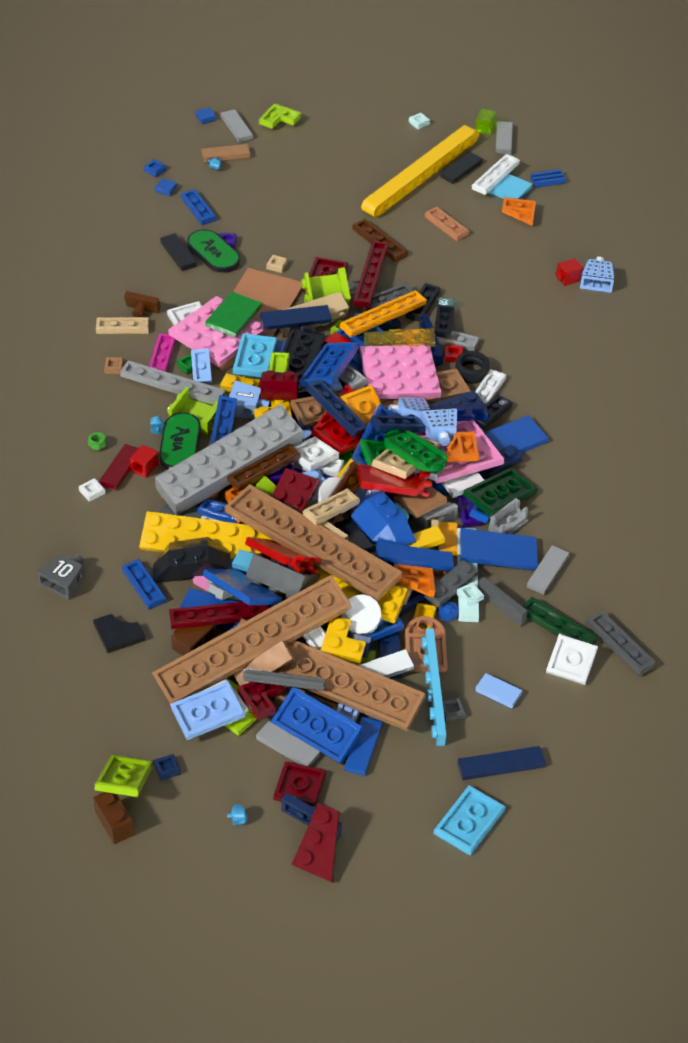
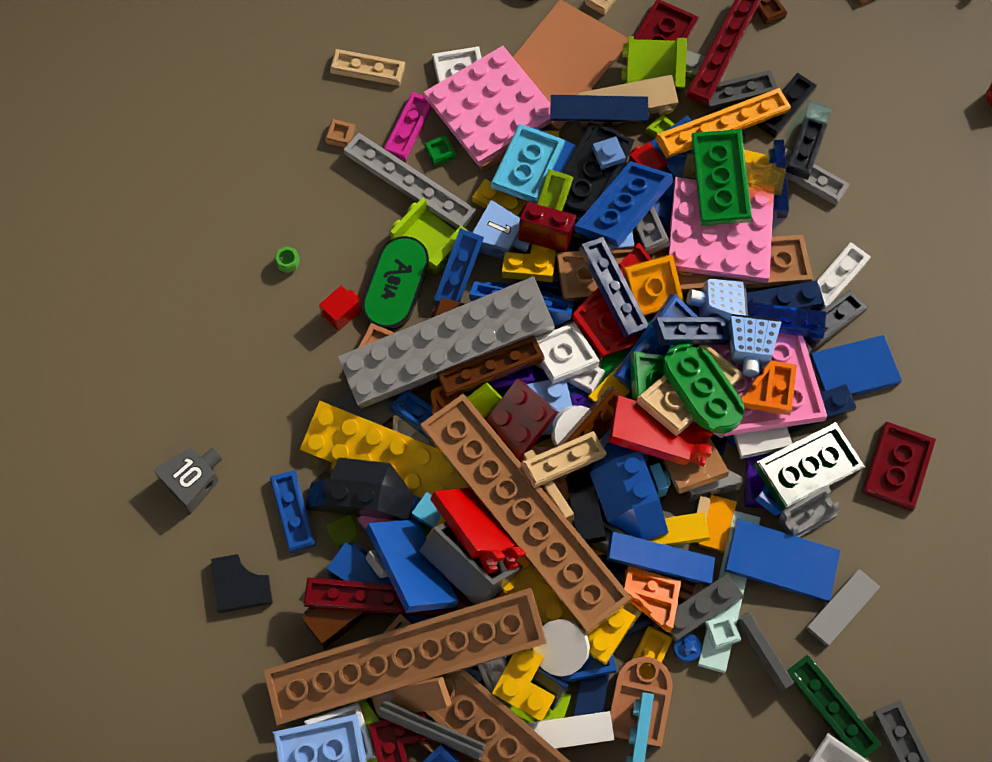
camera: 15 degrees right, 20 degrees up
(92, 489) = (262, 338): white tile -> none
(118, 468) = (306, 309): dark red tile -> none
(141, 303) = (399, 38): reddish brown tile -> none
(157, 425) = (371, 249): dark azure piece -> none
(181, 588) = (342, 531): none -> clear neon green tile
(201, 366) = (453, 163): light blue plate -> none
(233, 314) = (516, 86): green tile -> none
(310, 339) = (608, 153): none -> medium blue plate
(391, 339) = (721, 177): none -> green tile
(452, 352) = (806, 203): red tile -> none
(476, 358) = (829, 218): black tyre -> none
(561, 486) = (899, 466): none -> dark red tile

